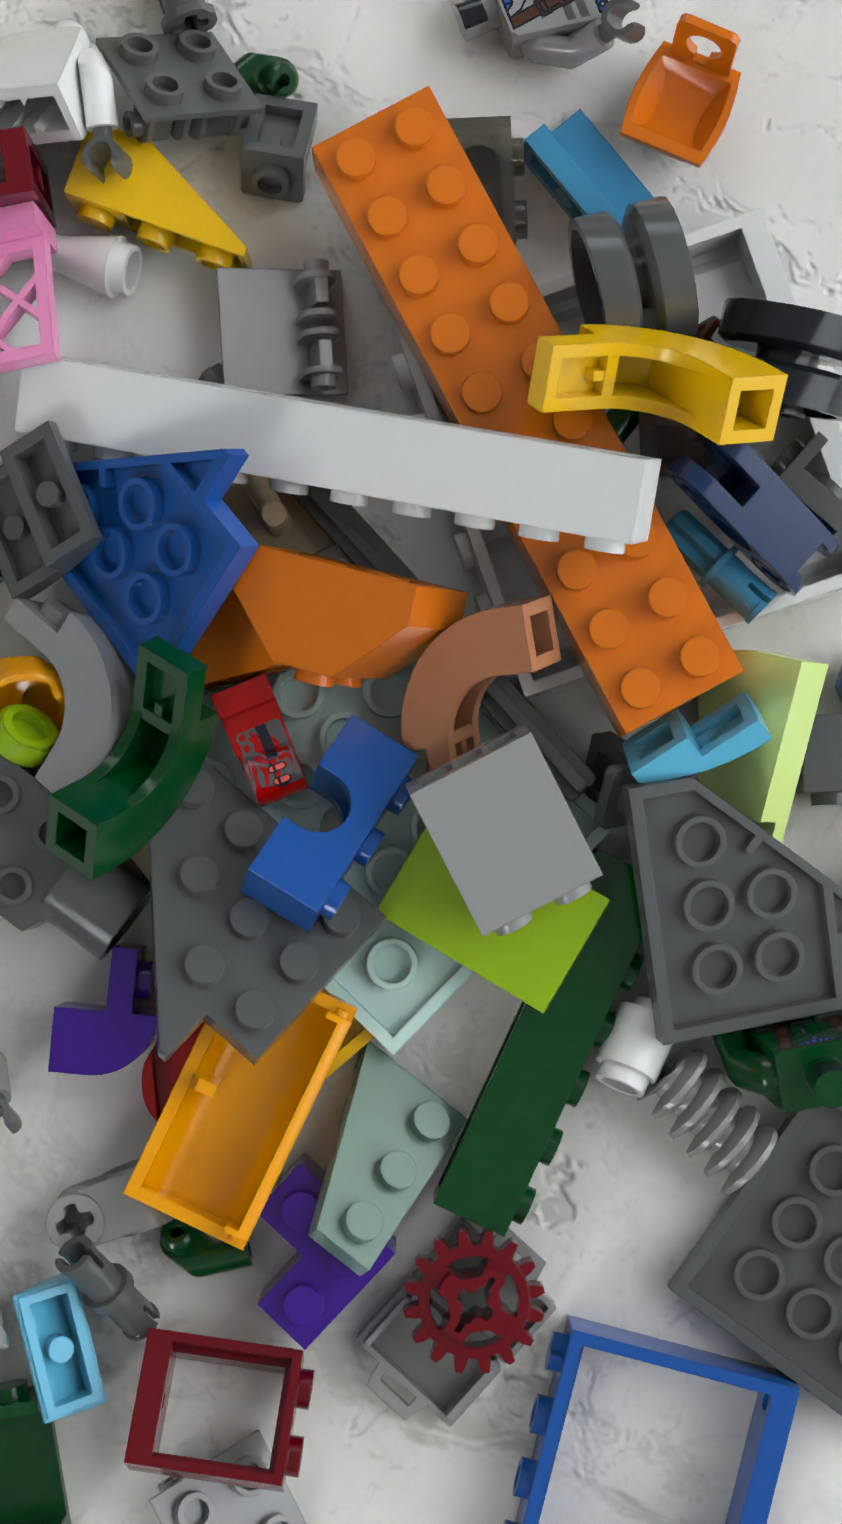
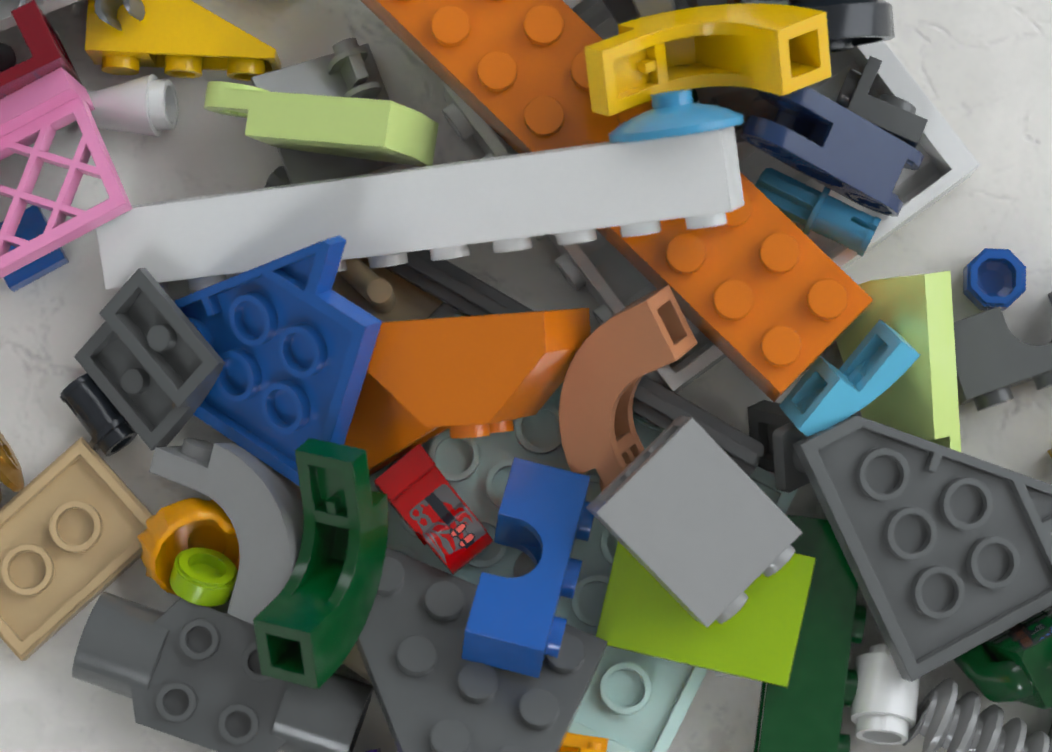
camera: 20 degrees left, 5 degrees down
(274, 336) = (328, 123): none -> yellowish green piece
(605, 432) = (674, 116): none -> dark azure dish

